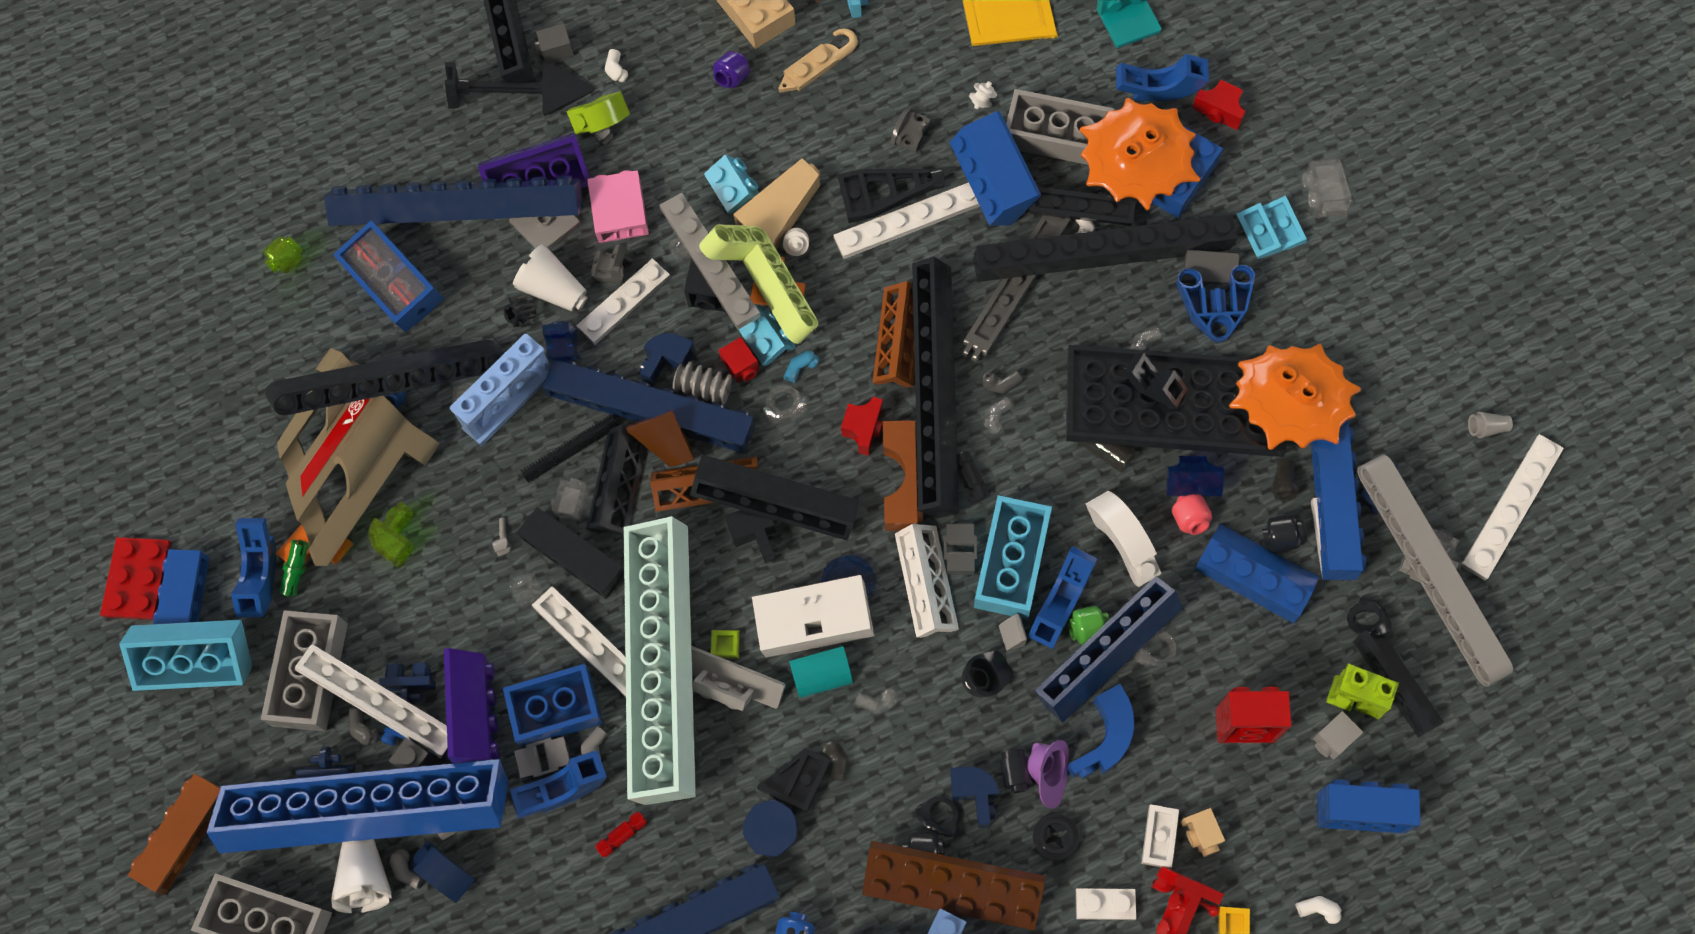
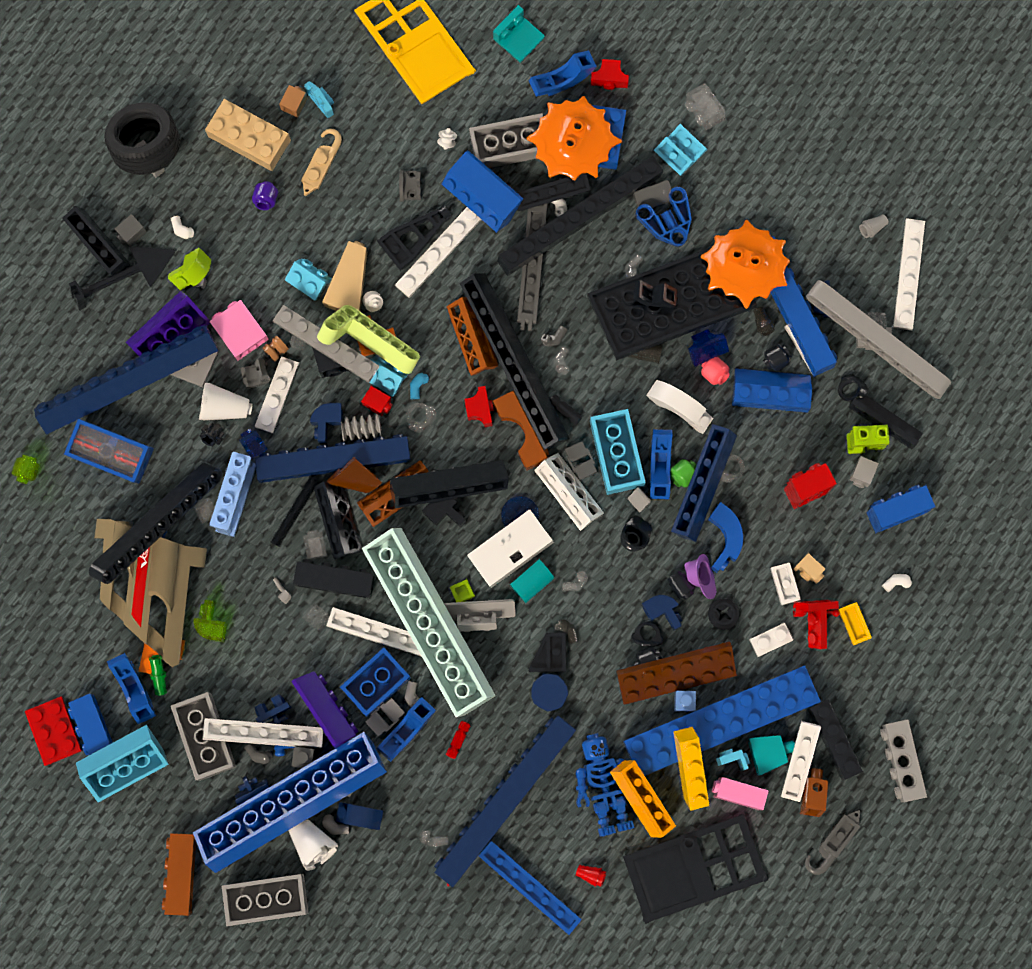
camera: 30 degrees left, 10 degrees up
(655, 244) = (280, 348): none -> medium nougat wheel

